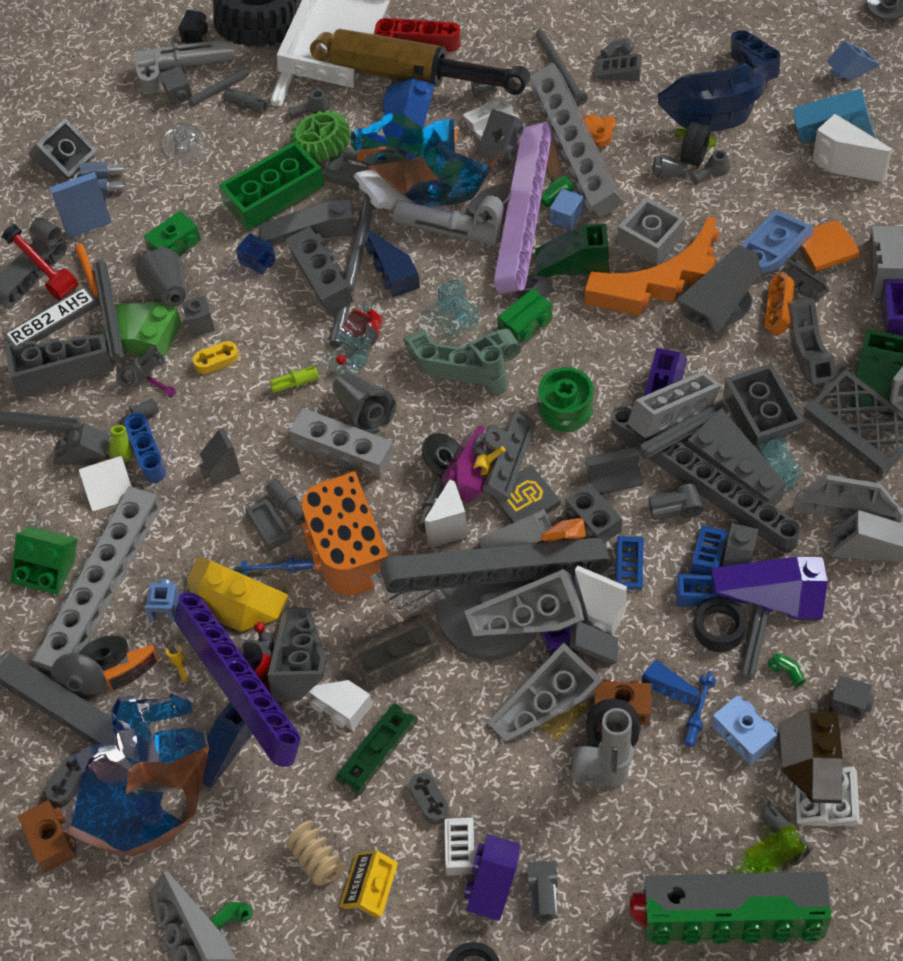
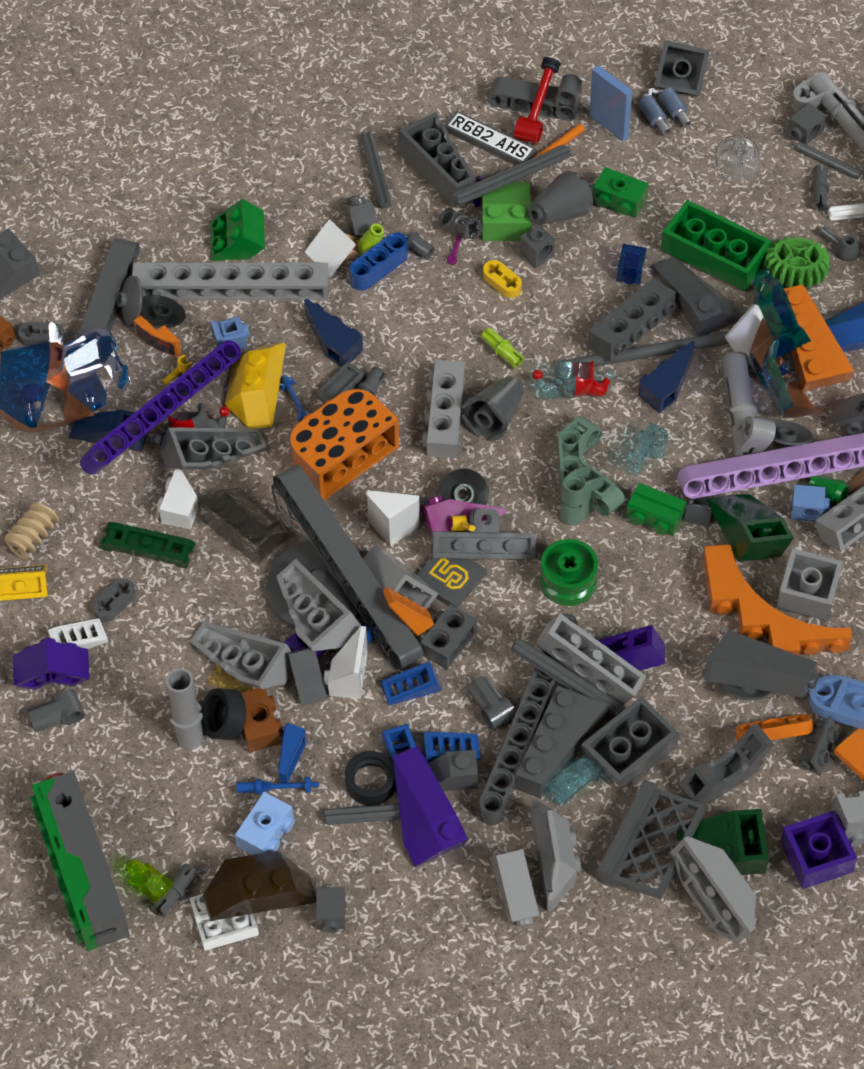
camera: 65 degrees right, 0 degrees up
(211, 512) = (335, 338): none -> dark blue slope
(219, 459) = (386, 321): dark grey slope -> none
(614, 470) = (501, 637): dark grey panel -> none
(780, 661) = (349, 851): green arm -> none

